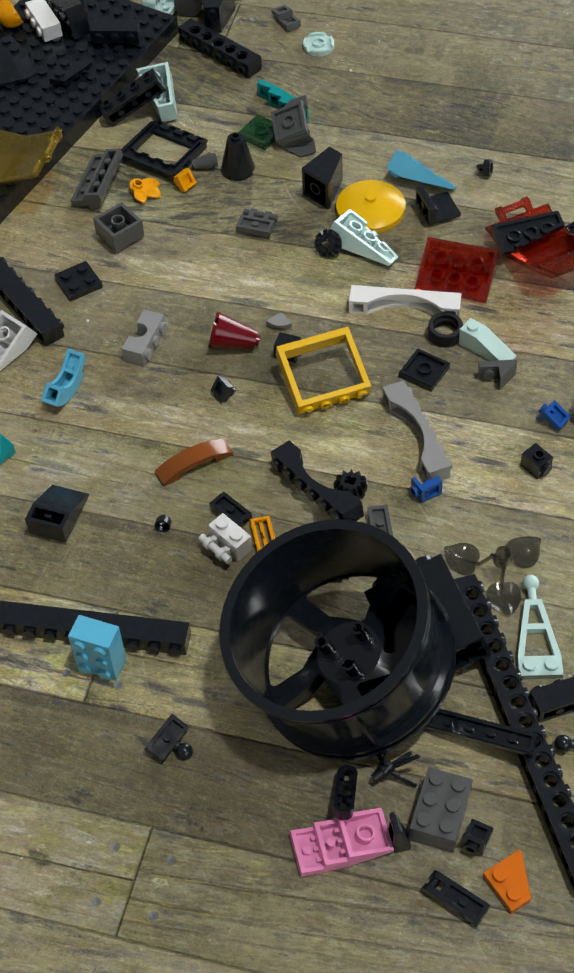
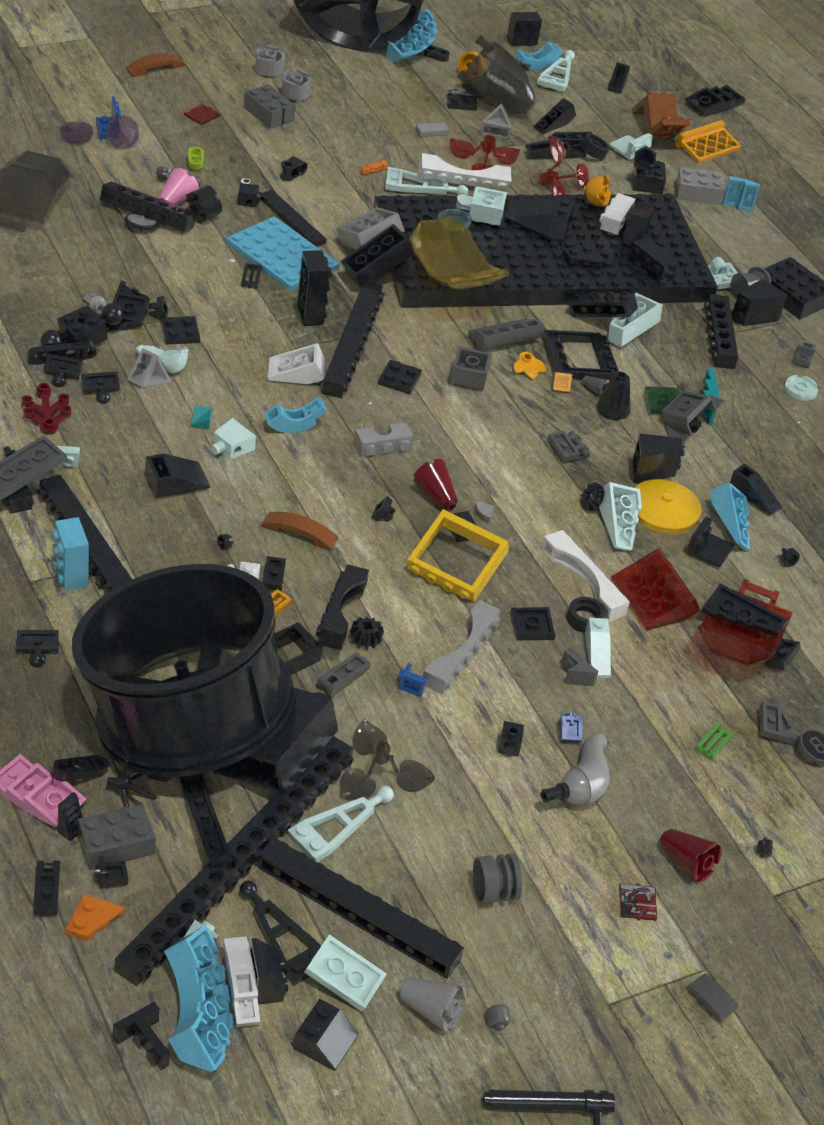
camera: 40 degrees right, 10 degrees down
(50, 443) = (233, 440): none -> light aqua torso
(404, 140) = (755, 489): none -> black slope

